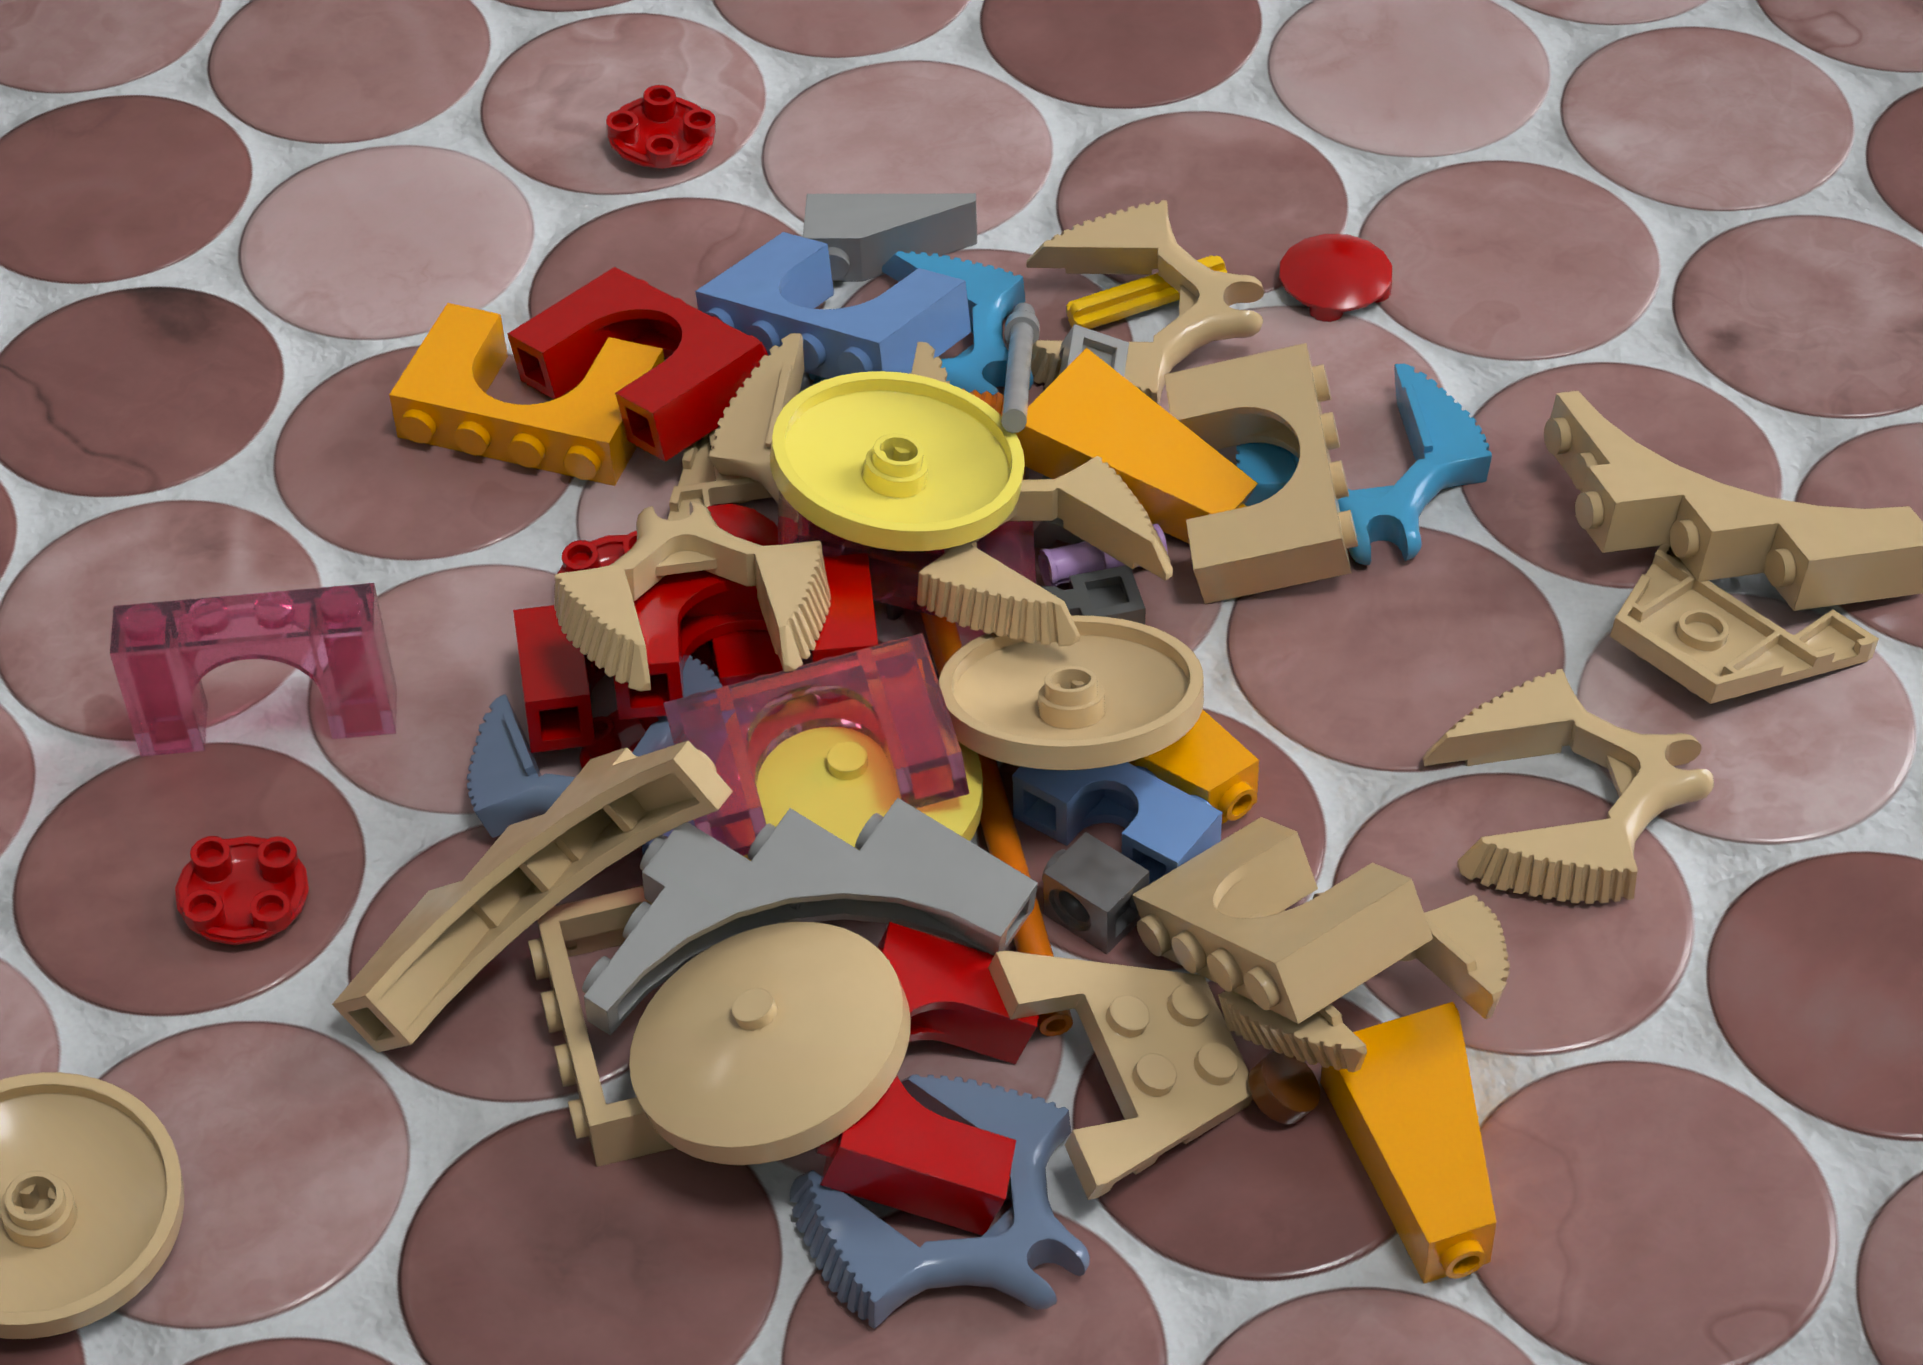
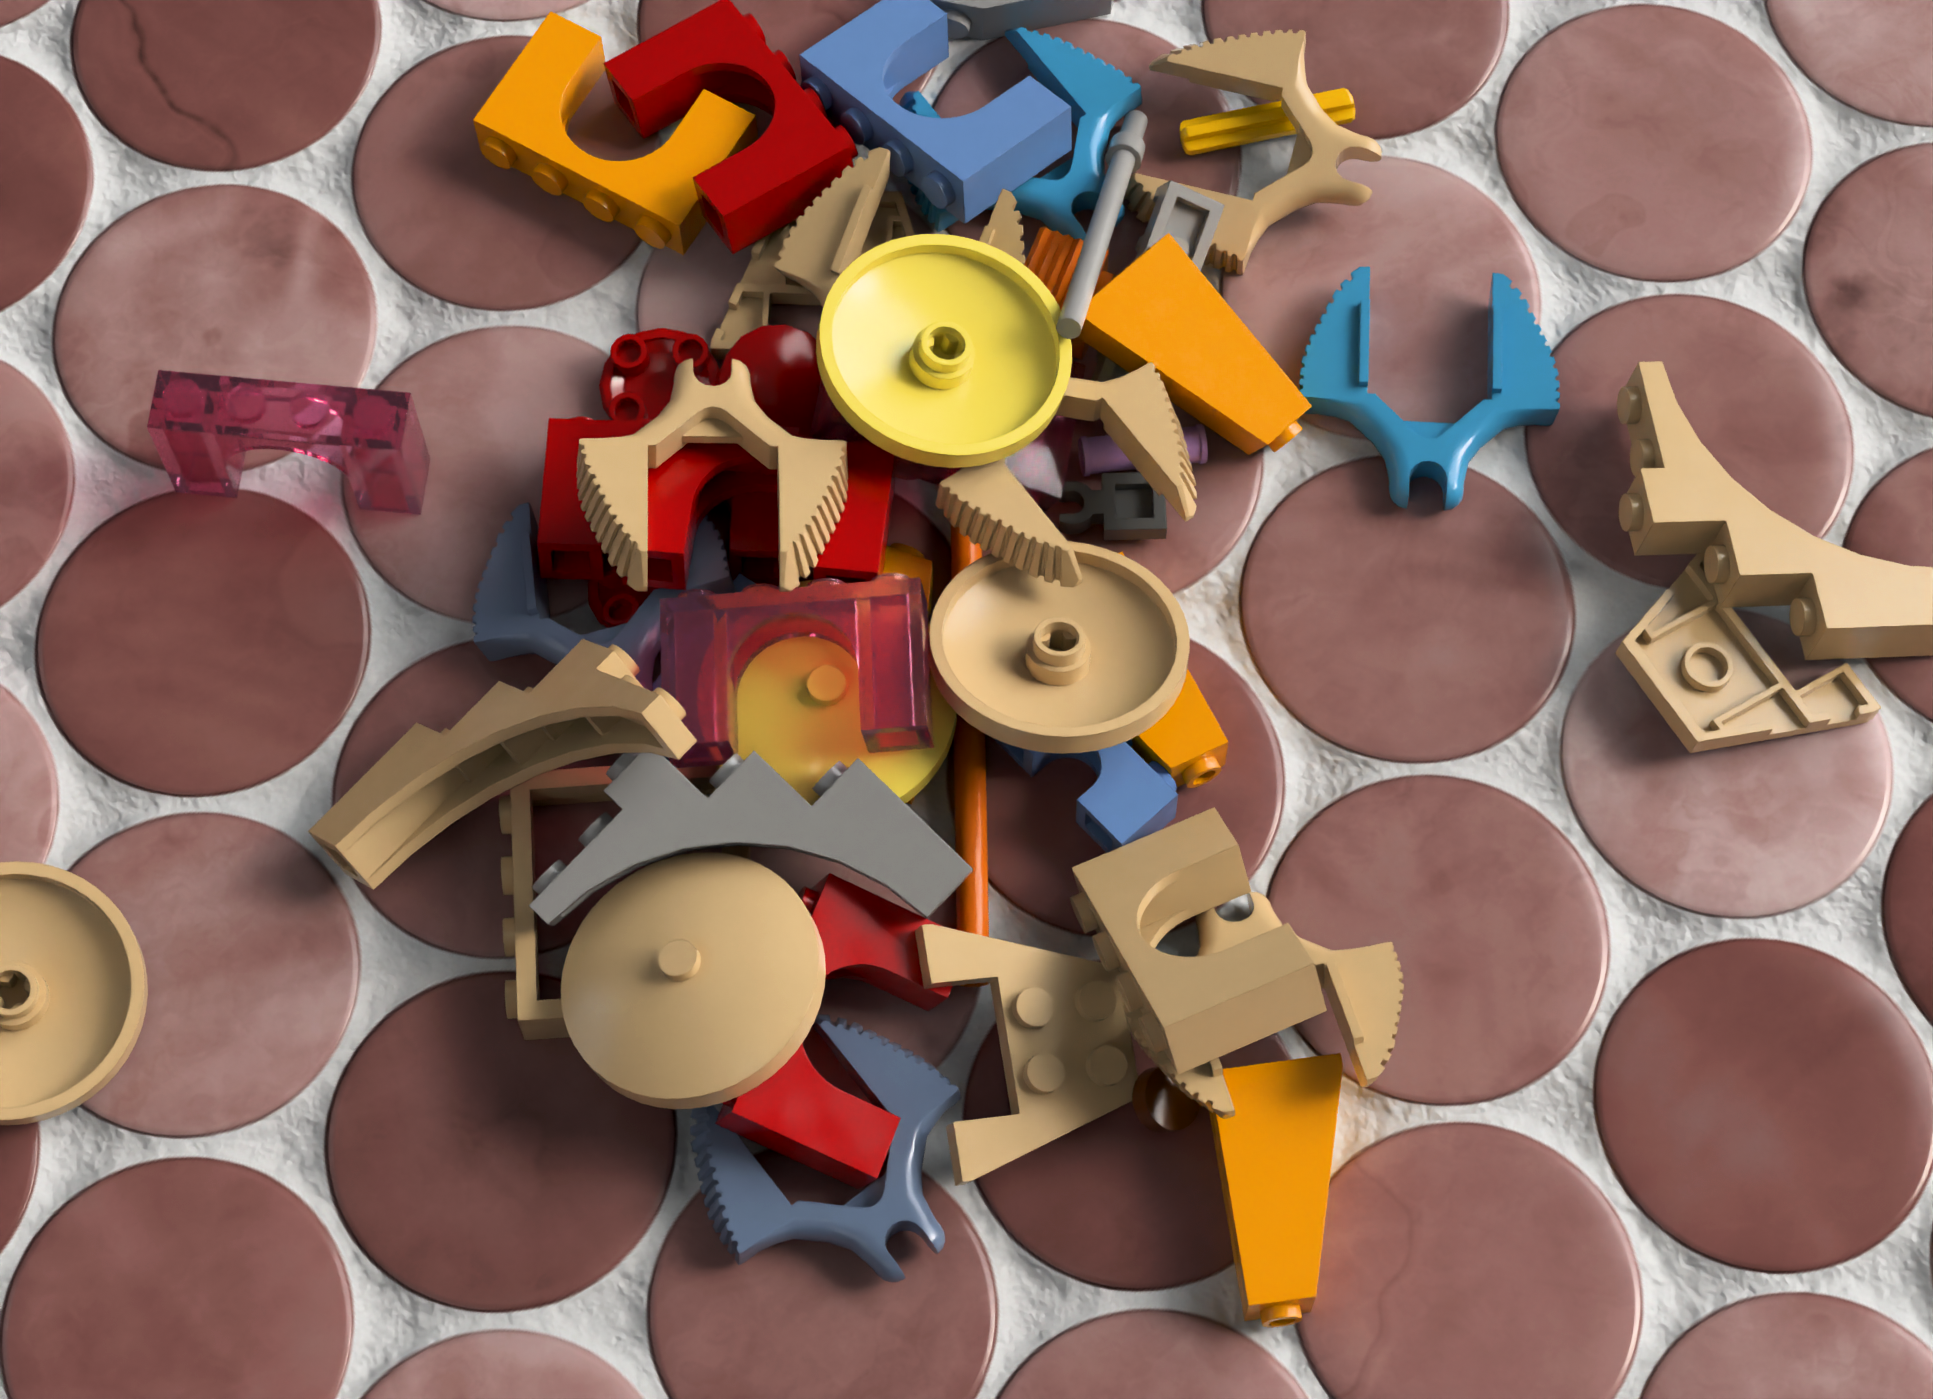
camera: 10 degrees right, 20 degrees up
(241, 888) = (246, 673): red dish -> none
(1092, 891) = (1039, 846): flat silver brick -> none
(1299, 529) = (1344, 470): tan arch -> none
(1336, 274) = (1467, 133): red dish -> none
(1582, 858) = (1527, 906): tan piece -> none

